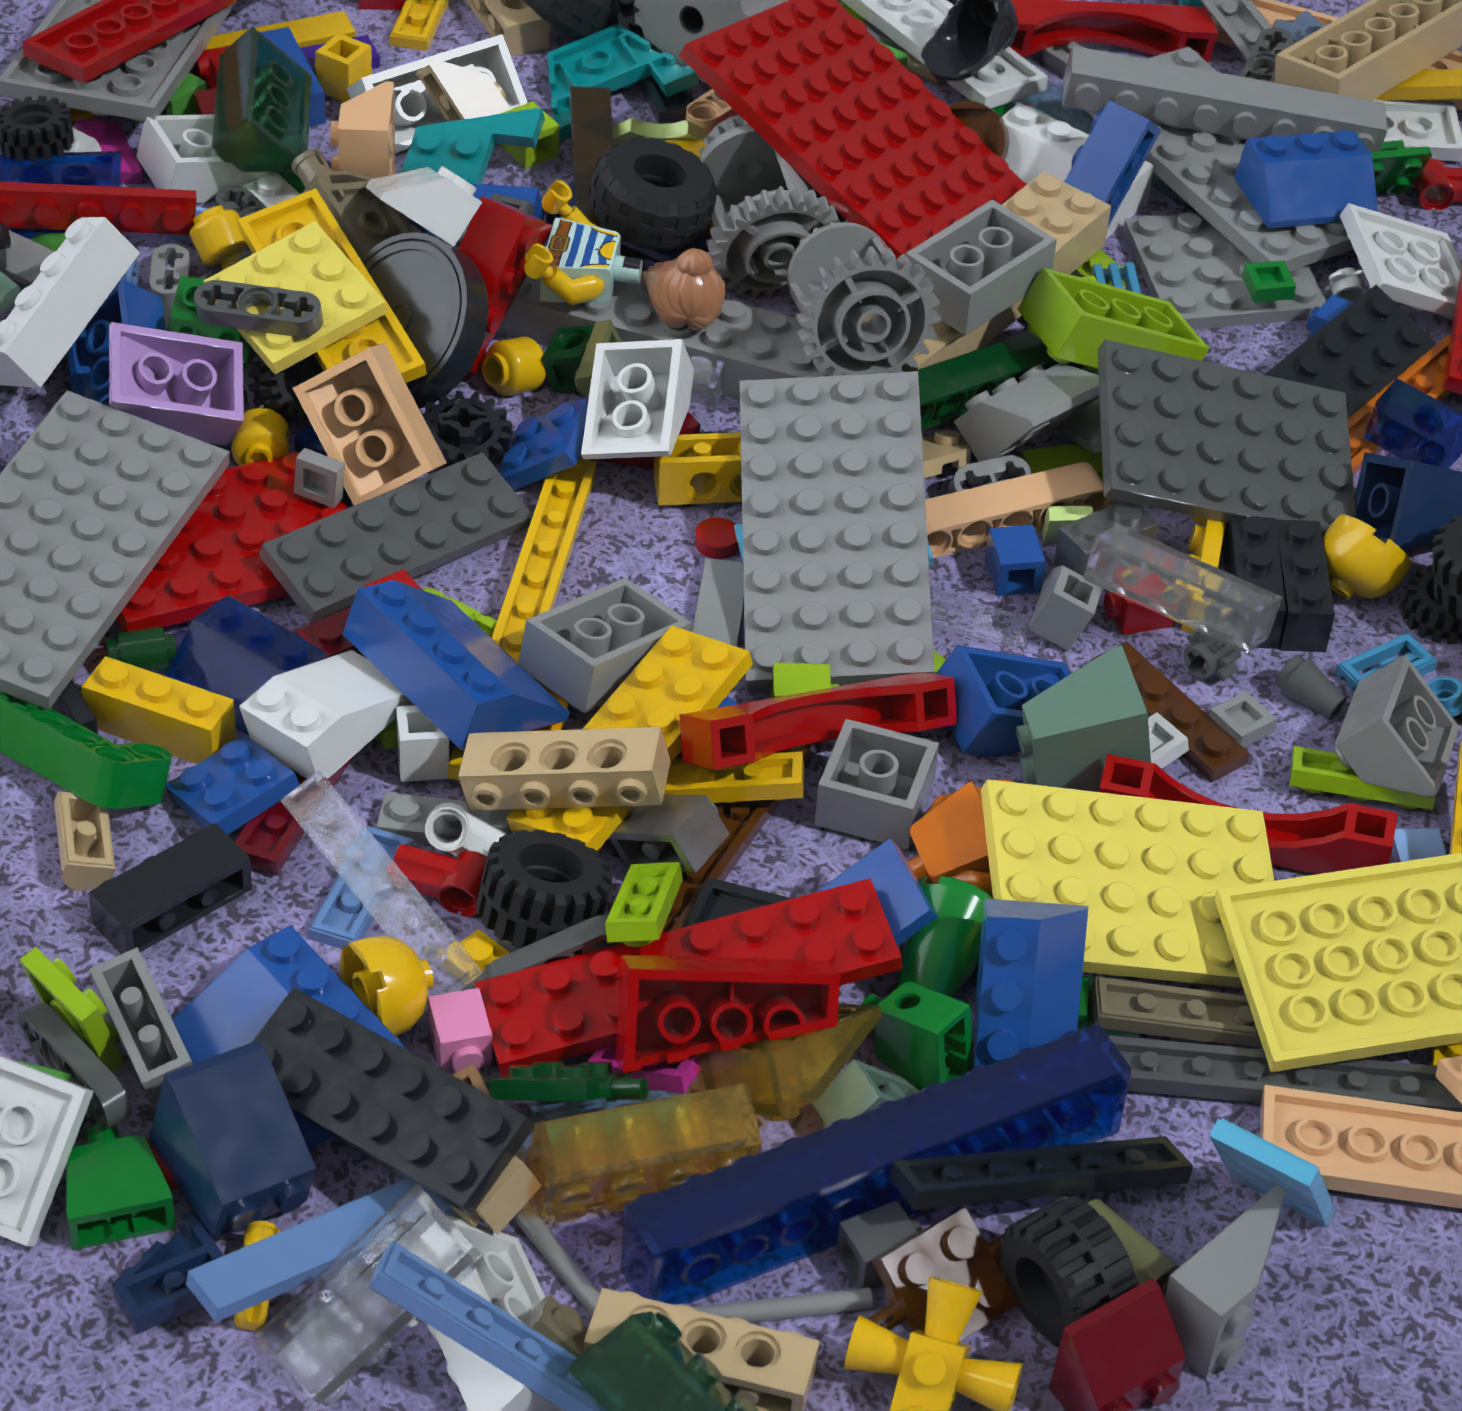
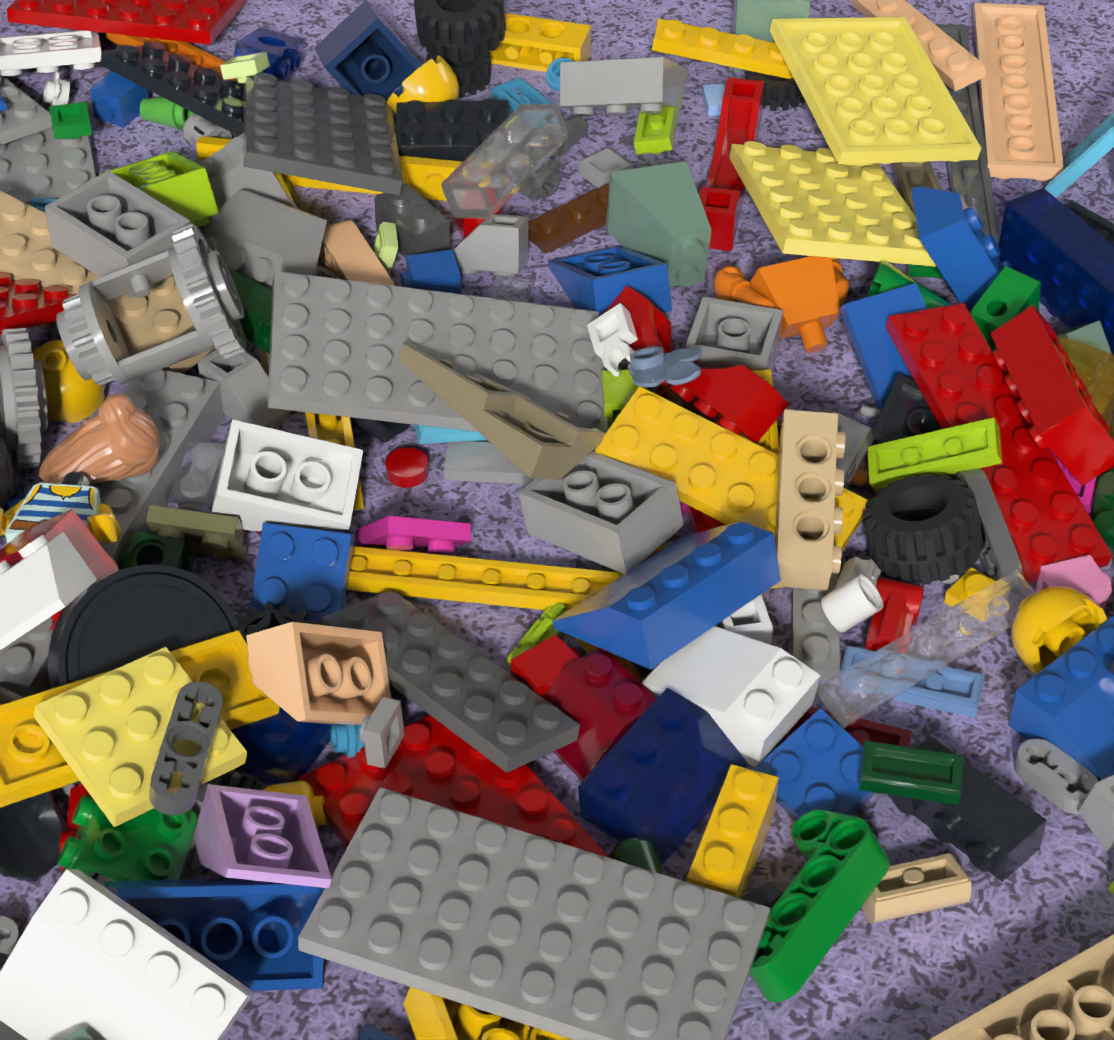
camera: 90 degrees left, 0 degrees up
(194, 825) = (911, 772): none -> dark green tile
(197, 975) = (1054, 777): none -> light grey beam
(595, 521) = (411, 533): none -> dark pink wing
(688, 564) = (522, 430): none -> dark tan wedge
(783, 674) = (652, 367): none -> sand blue plate
(868, 663) = (612, 336): none -> white plate
(1363, 393) = (244, 66): none -> yellowish green plate

